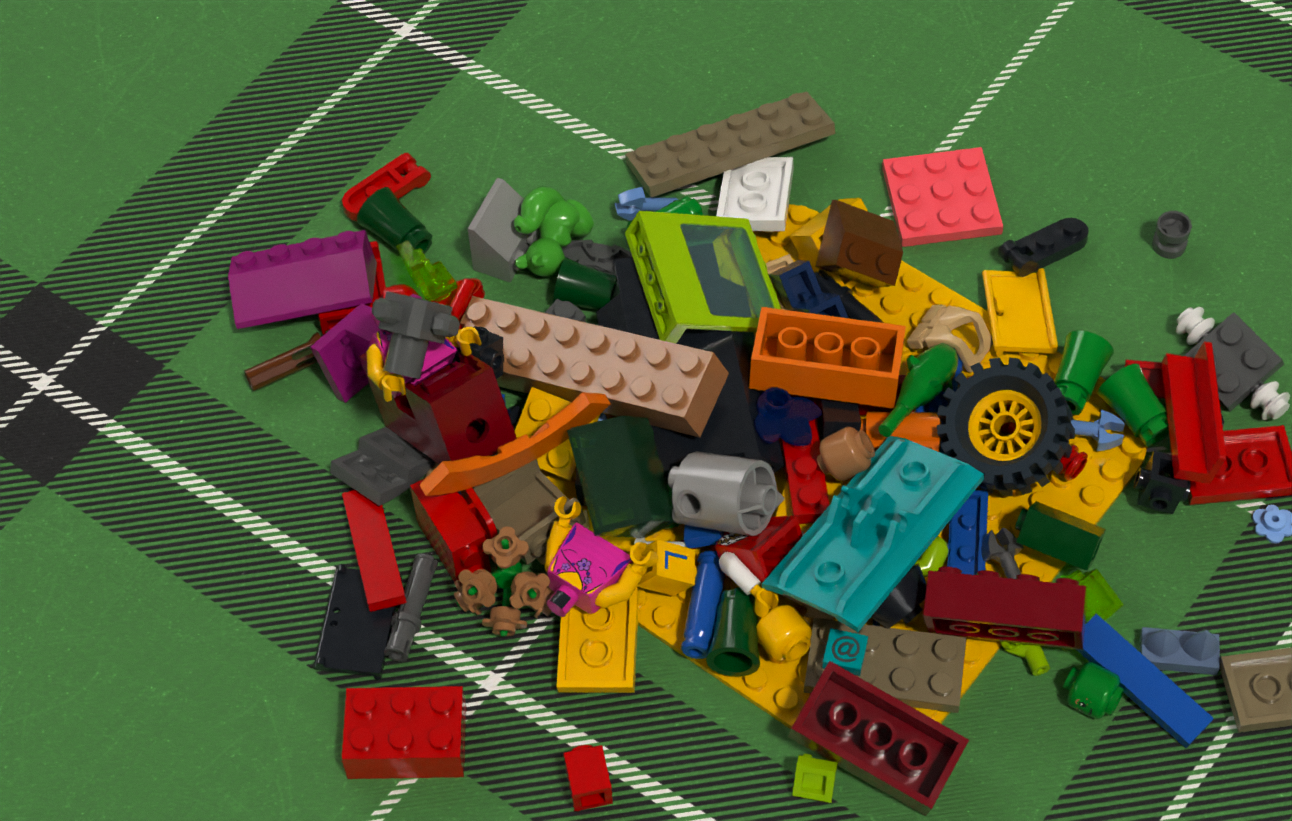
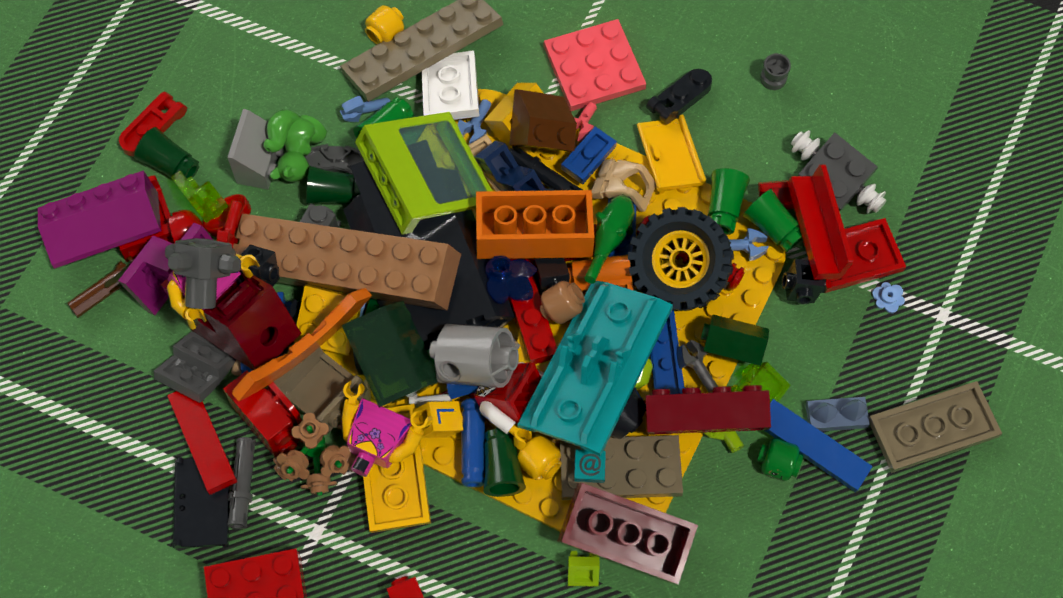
camera: 15 degrees left, 10 degrees up
(687, 113) = (384, 24): none -> yellow head
(779, 239) = (474, 124): none -> medium blue bar
(913, 259) = (582, 121): none -> coral bar
(913, 295) = (588, 155): none -> blue plate

